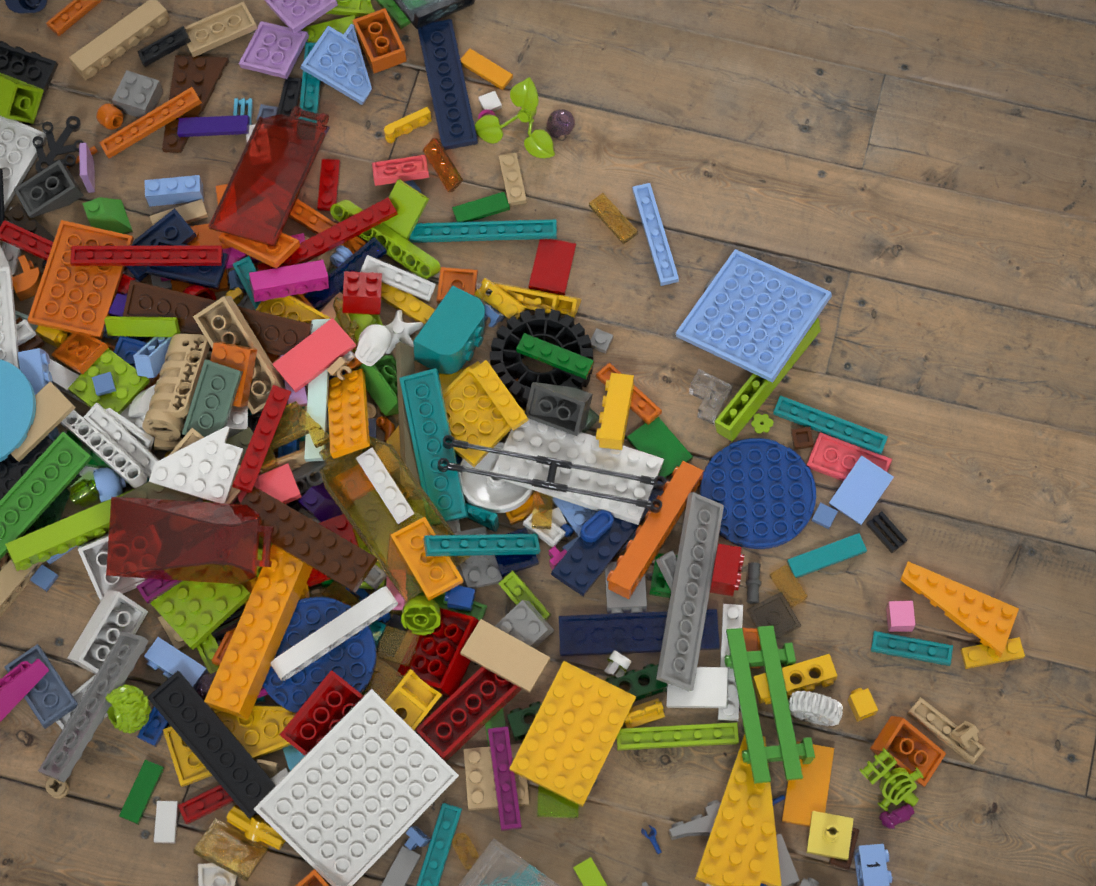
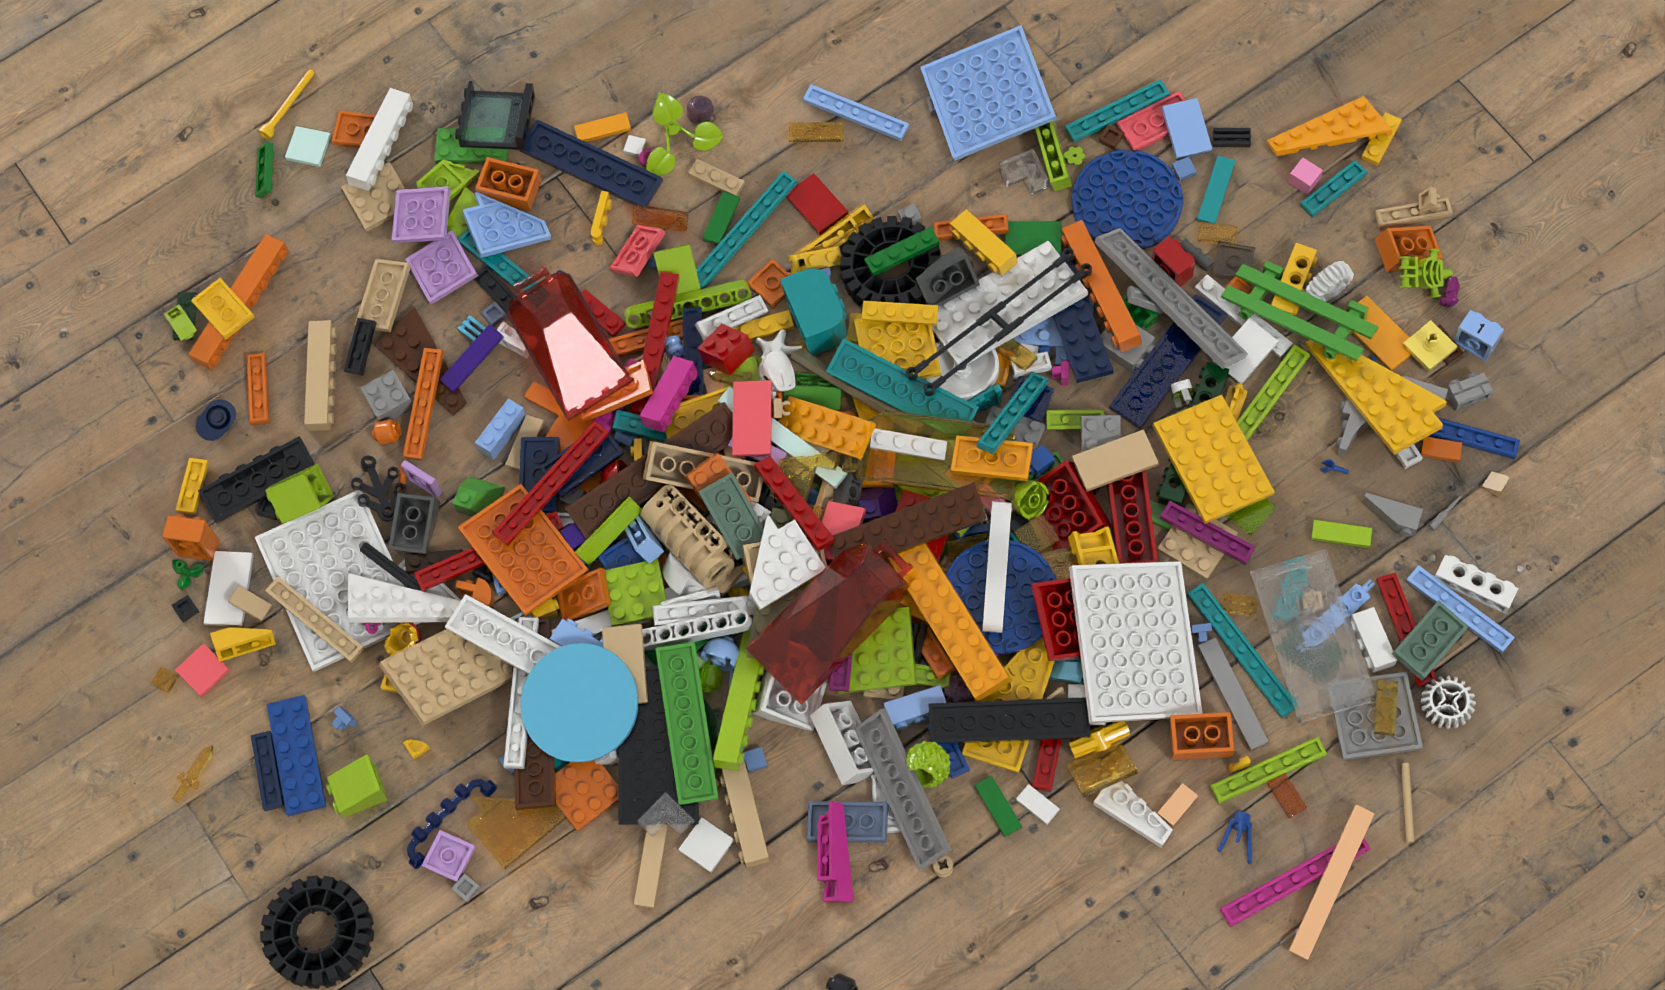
camera: 45 degrees left, 0 degrees up
(104, 384) = (635, 593): medium blue tile -> none
(596, 526) = (1066, 323): blue tile -> none
(862, 704) = (1349, 251): yellow brick -> none

